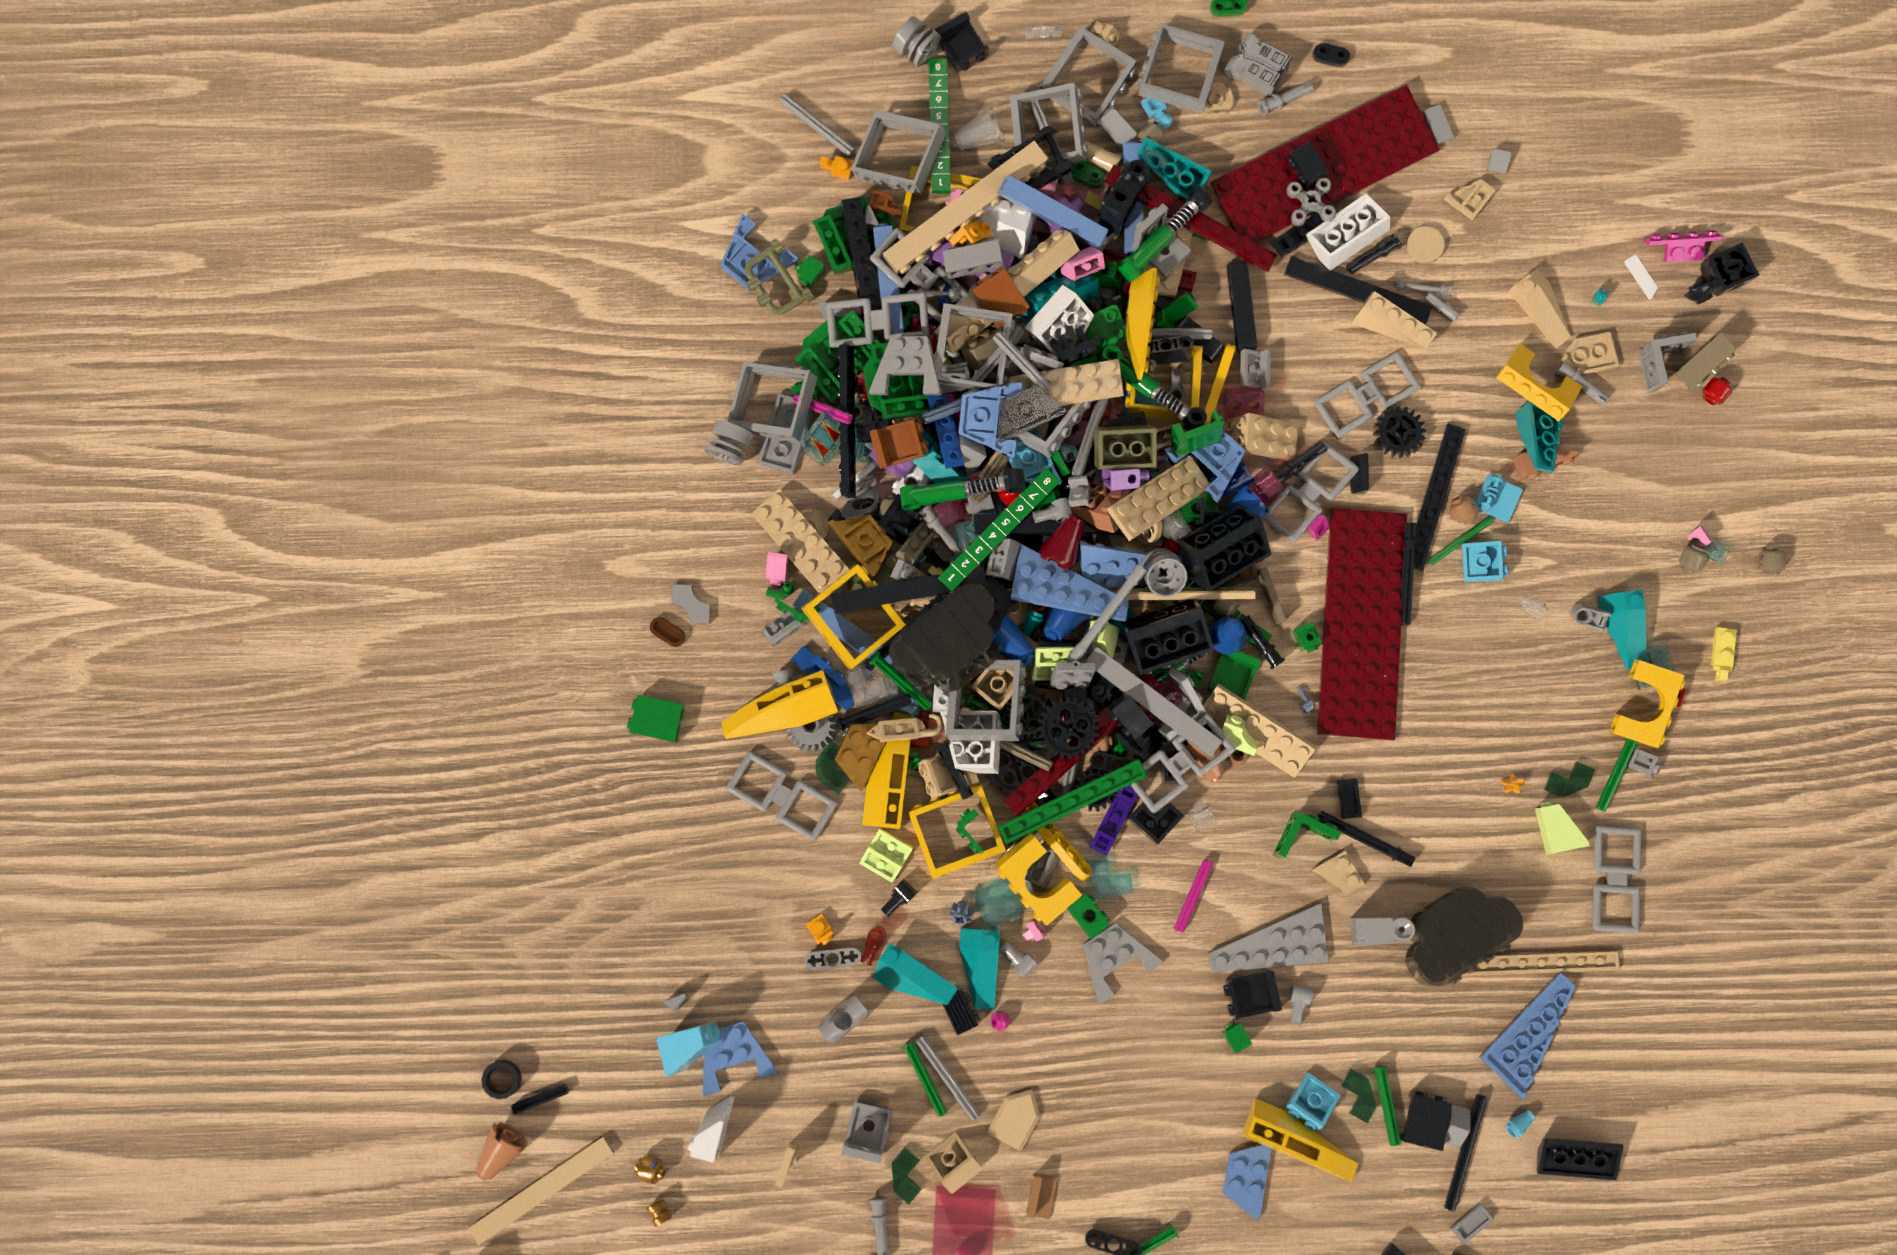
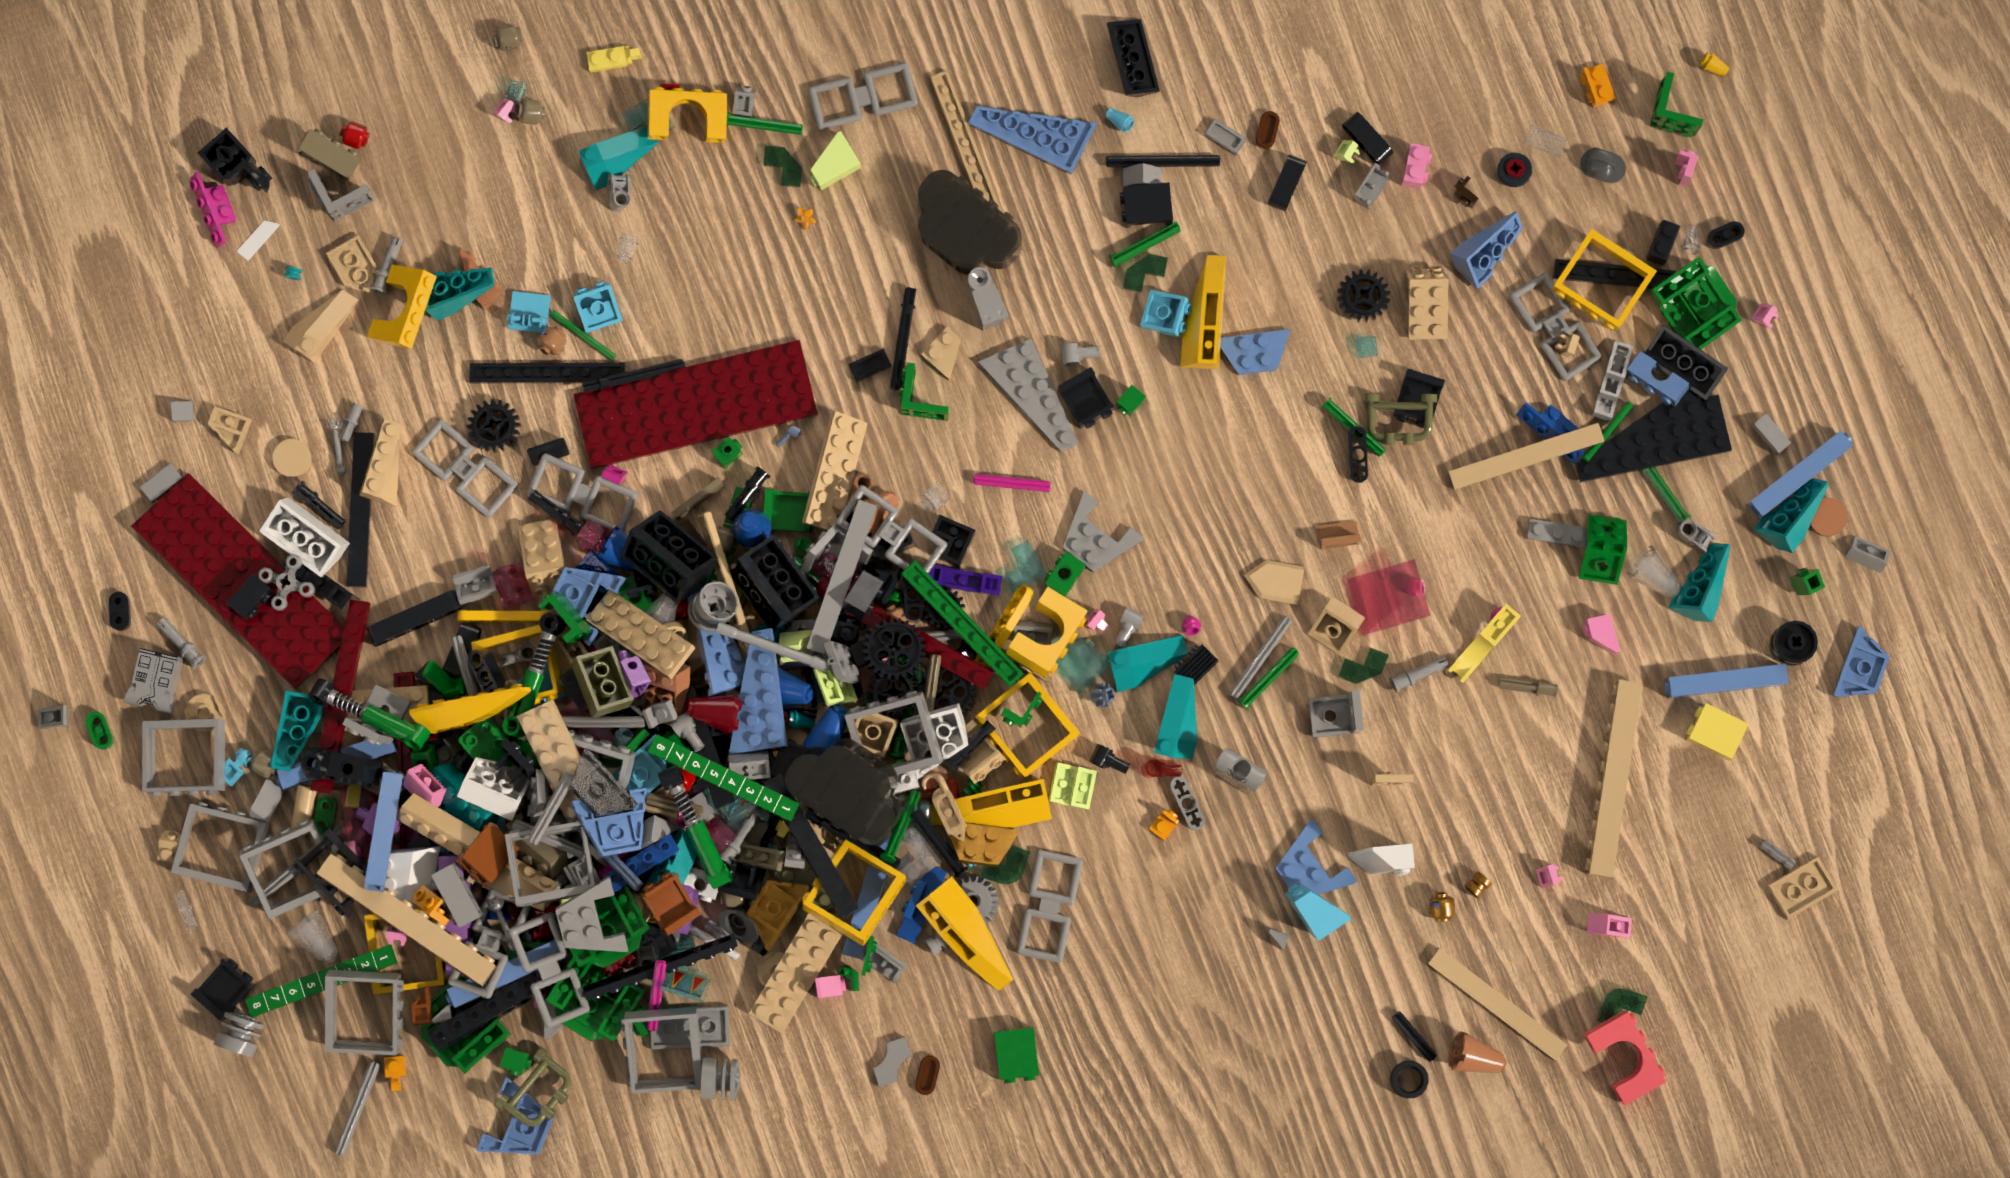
camera: 105 degrees left, 0 degrees up
(1236, 732) = (846, 487): yellowish green arch -> none

